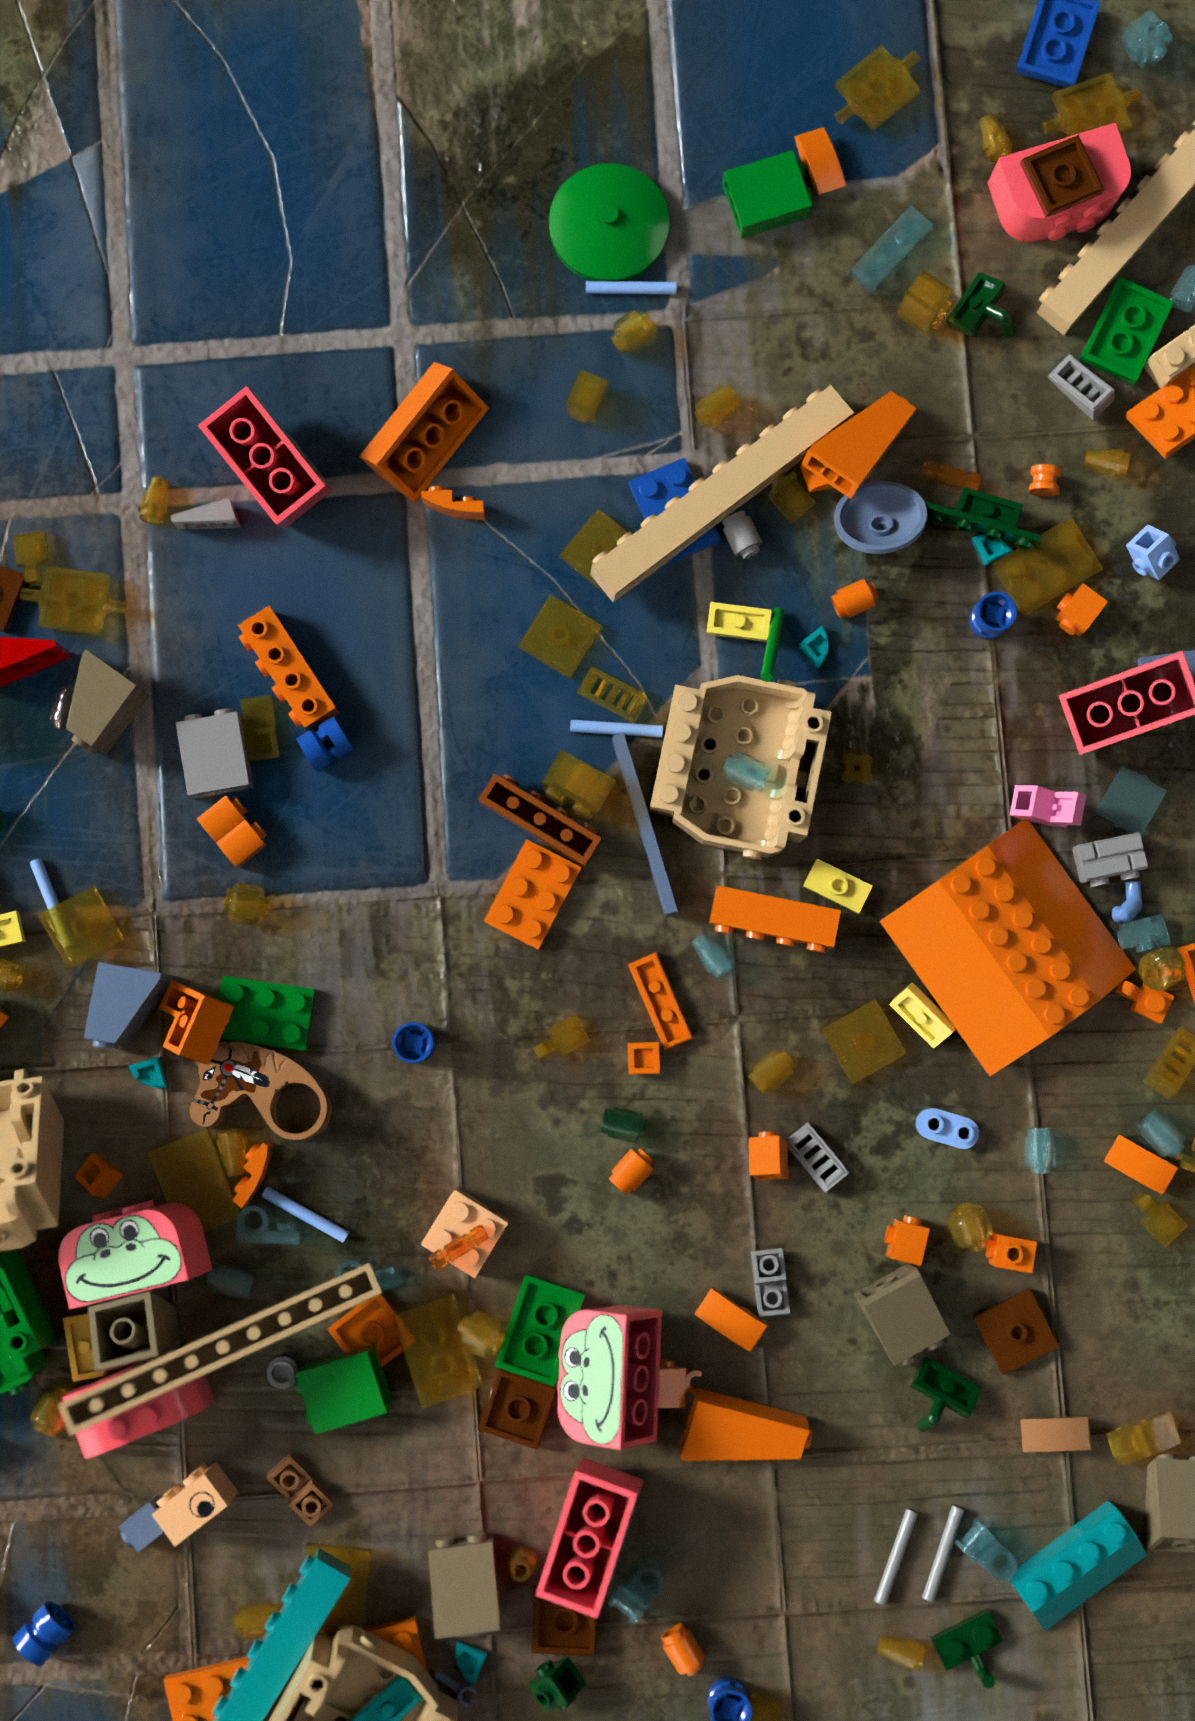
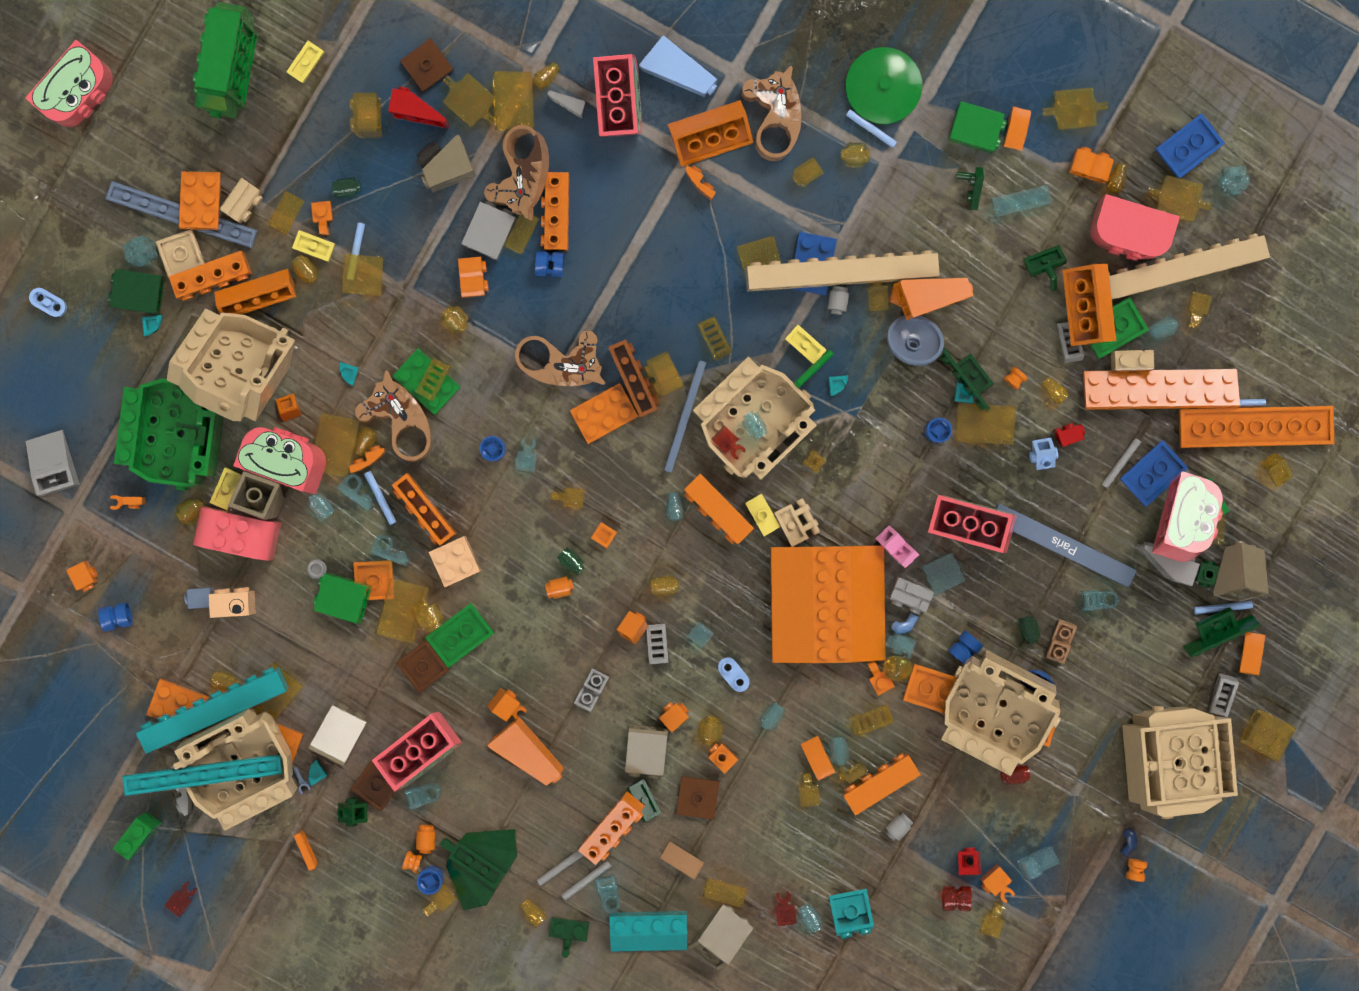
camera: 35 degrees right, 5 degrees up
(31, 553) = (463, 59): clear yellow plate -> none
(122, 1003) = (358, 328): sand blue slope -> none
(133, 562) = (513, 99): none -> clear yellow plate
(196, 1023) = (391, 363): orange brick -> none
(218, 1349) = (297, 536): tan brick -> none
(219, 646) = (528, 175): none -> medium nougat animal
(280, 990) = (434, 362): none -> clear yellow slope
(300, 1489) = (287, 632): medium nougat slope -> none
(324, 376) = (678, 68): none -> light blue slope
(372, 1188) = (426, 512): none -> orange brick
(453, 862) = (572, 370): none -> medium nougat animal
(458, 1247) = (447, 566): clear orange axle -> none
(469, 1026) = (526, 459): none -> clear light blue plate
(492, 329) = (782, 100): none -> medium nougat animal
(522, 1556) = (377, 739): clear yellow cone -> none
(560, 636) = (708, 289): clear yellow plate -> none
(610, 1376) = (480, 680): brick -> none
(616, 728) = (705, 357): light blue bar -> none
(660, 1001) = (632, 512): orange tile -> none
(686, 1696) = (412, 862): none -> orange wheel
(717, 406) = (872, 223): clear yellow brick -> none
(723, 818) = (726, 441): none -> clear red plate
(731, 1320) = (559, 695): orange slope -> none
(783, 1633) = (480, 864): none -> dark green panel
(818, 259) = (976, 181): none -> dark green plate
(854, 599) = (873, 373): orange brick -> none
(863, 1041) = (721, 602): clear yellow plate -> none
(866, 1104) = (700, 634): none -> clear light blue plate
(886, 873) = (791, 524): none -> tan plate
(922, 1015) = (760, 609): light yellow plate -> none
(925, 303) = (1017, 243): clear yellow brick -> none
(931, 1457) = (612, 826): none -> orange brick
(949, 144) = (1091, 165): none -> orange brick
(950, 475) = (969, 342): clear orange axle -> none
(1062, 176) = (1130, 227): reddish brown plate -> none
(1077, 316) = (1089, 304): none -> orange slope
(1079, 610) = (985, 457): orange brick -> none
(1167, 506) = (1069, 434): none -> red brick

